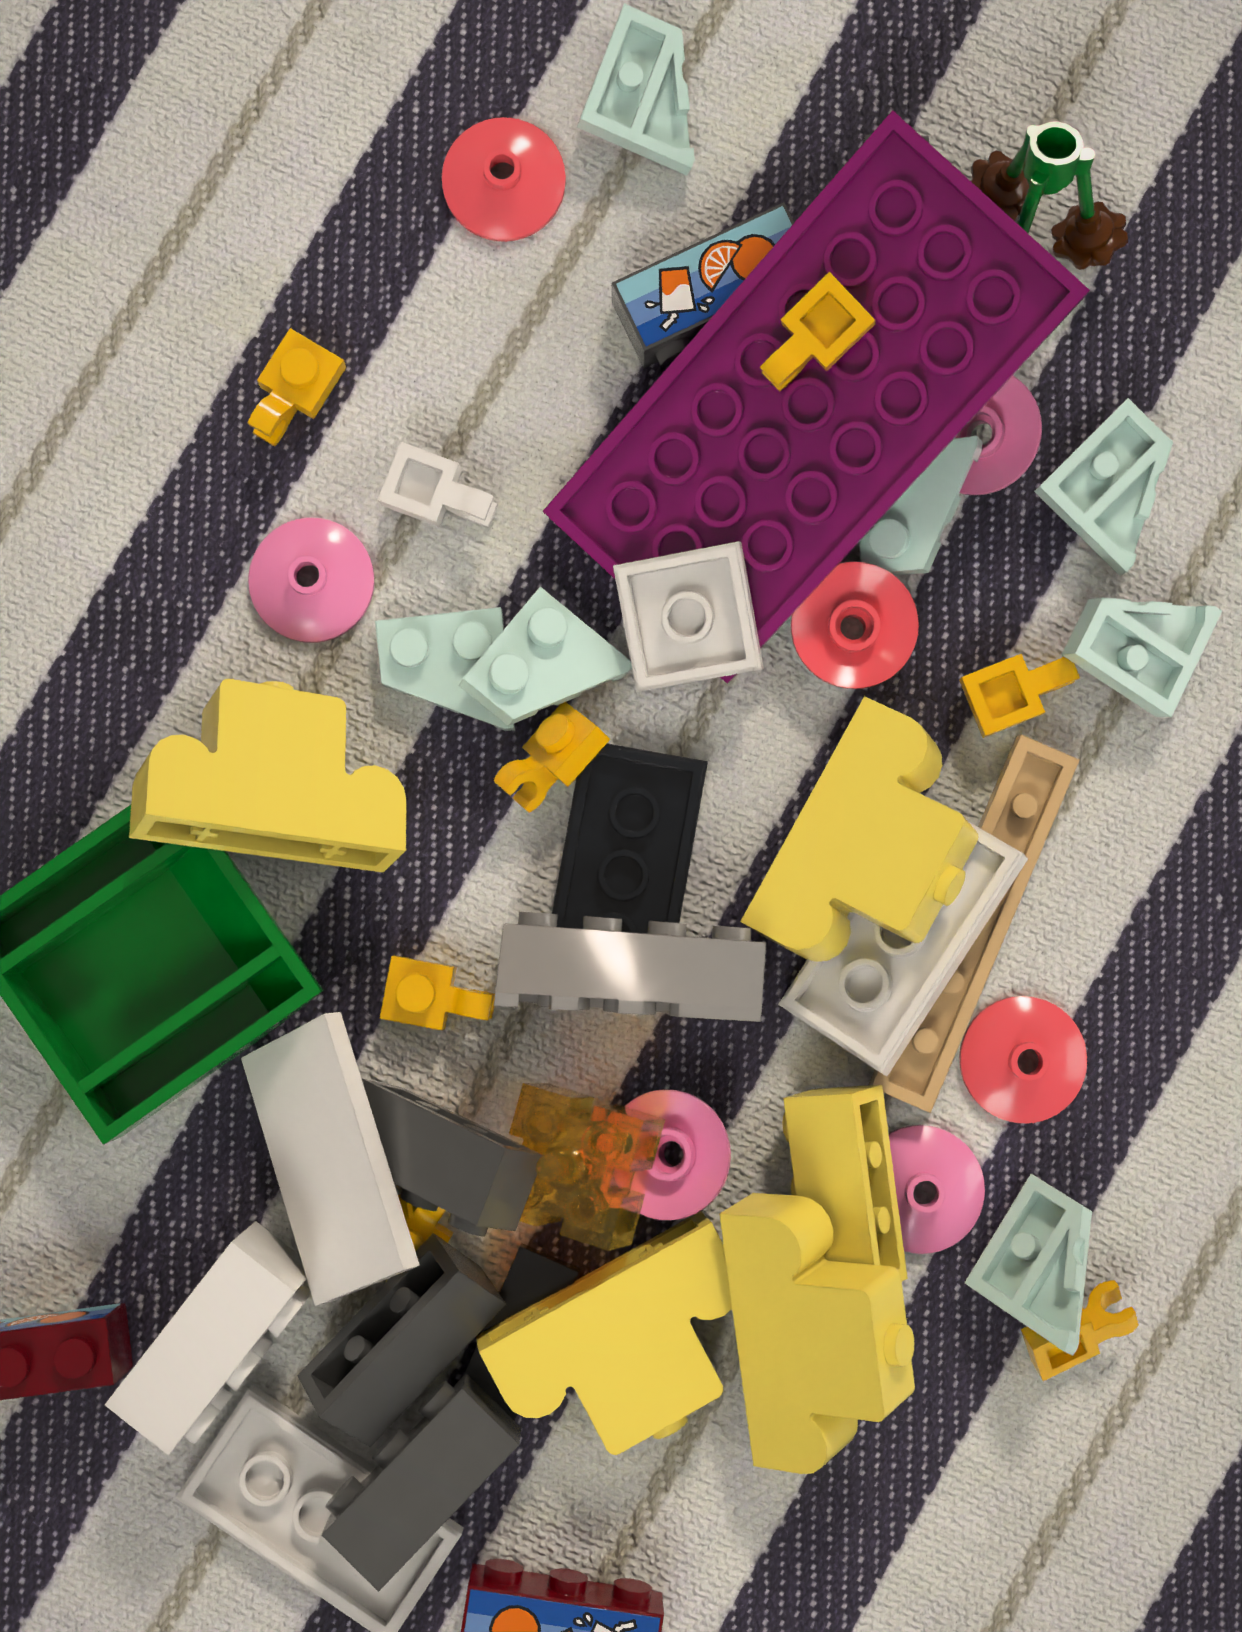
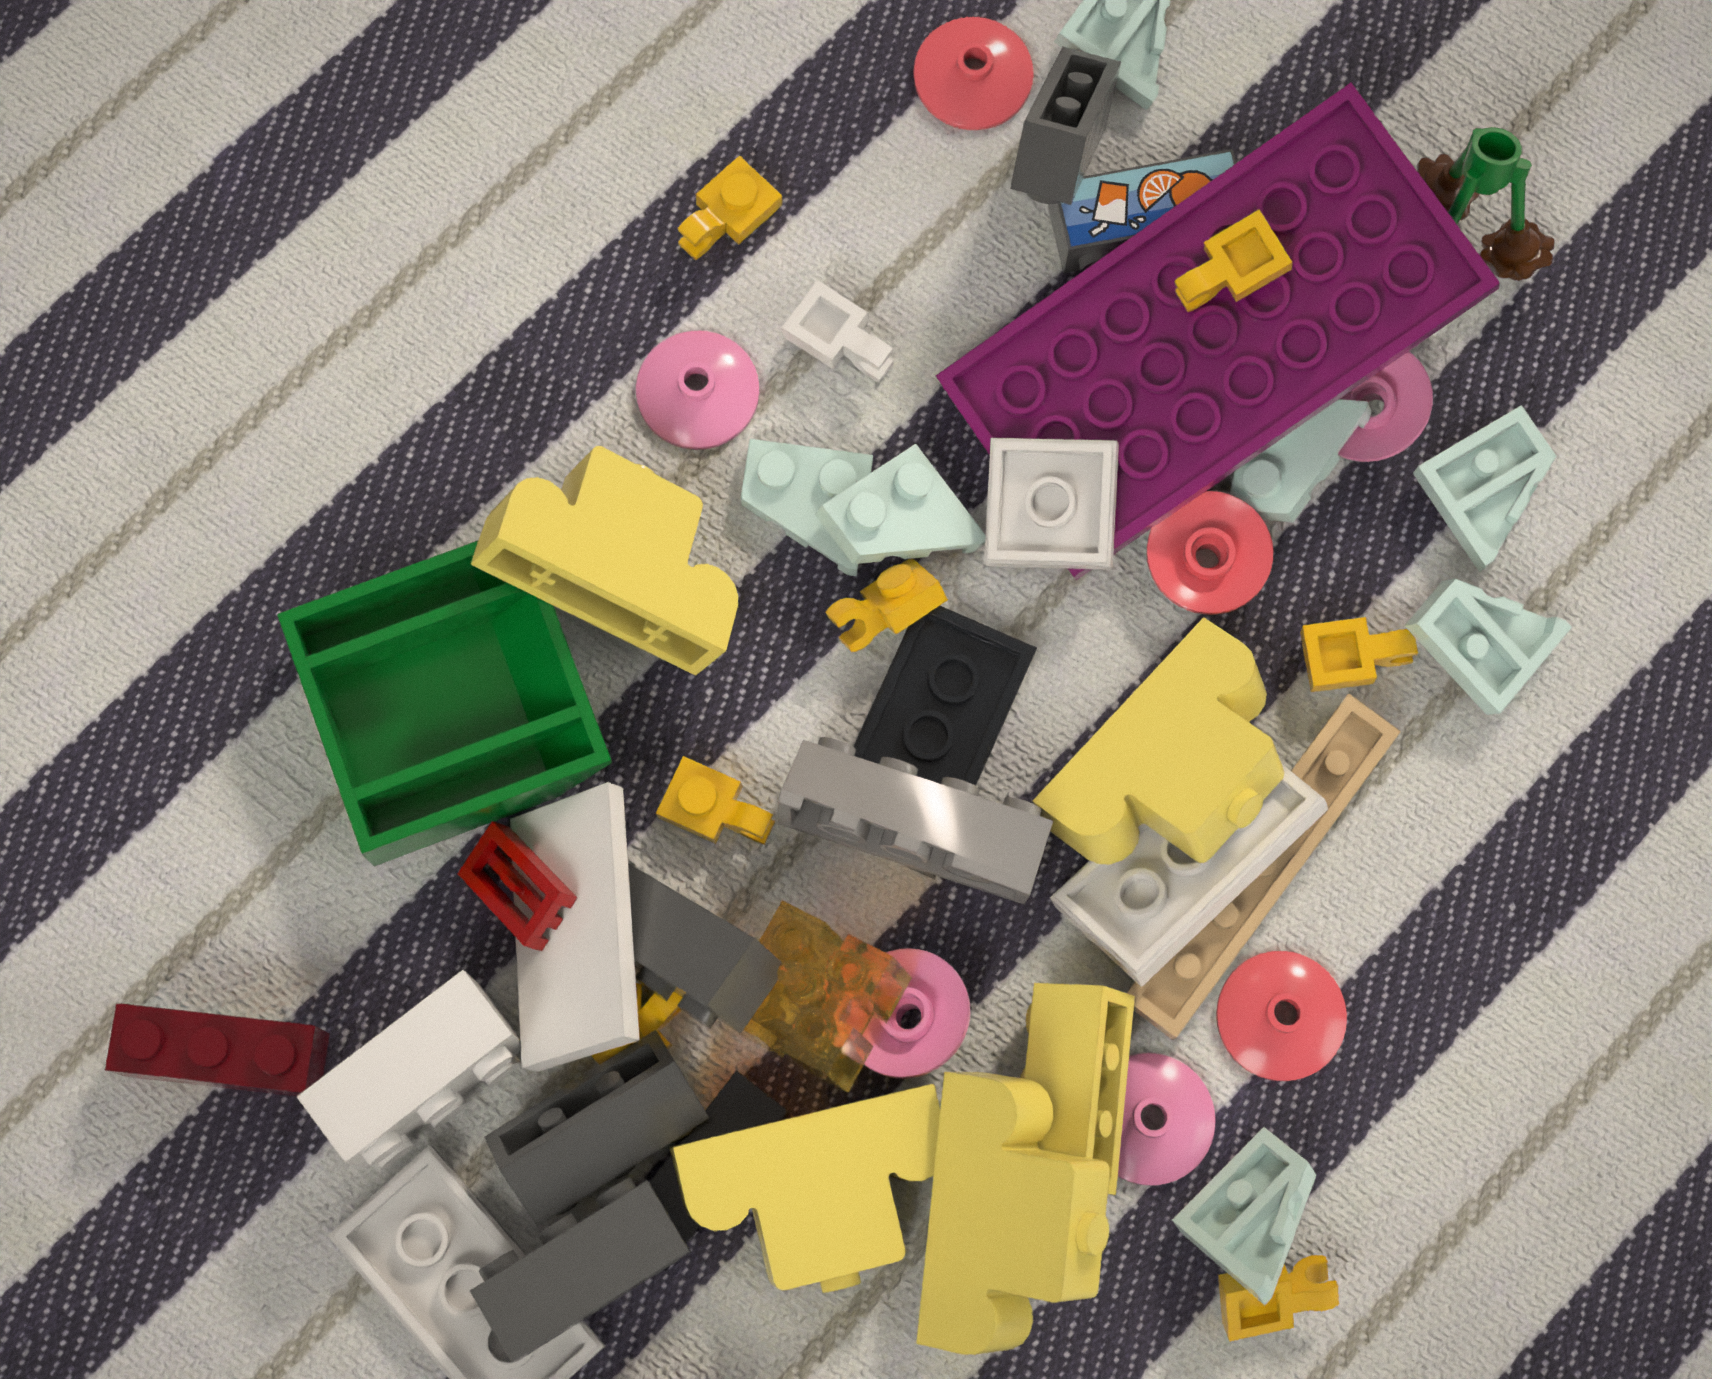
camera: 15 degrees right, 10 degrees down
(267, 1118) = (545, 909): none -> red tile
(610, 223) = (1065, 126): none -> dark grey brick

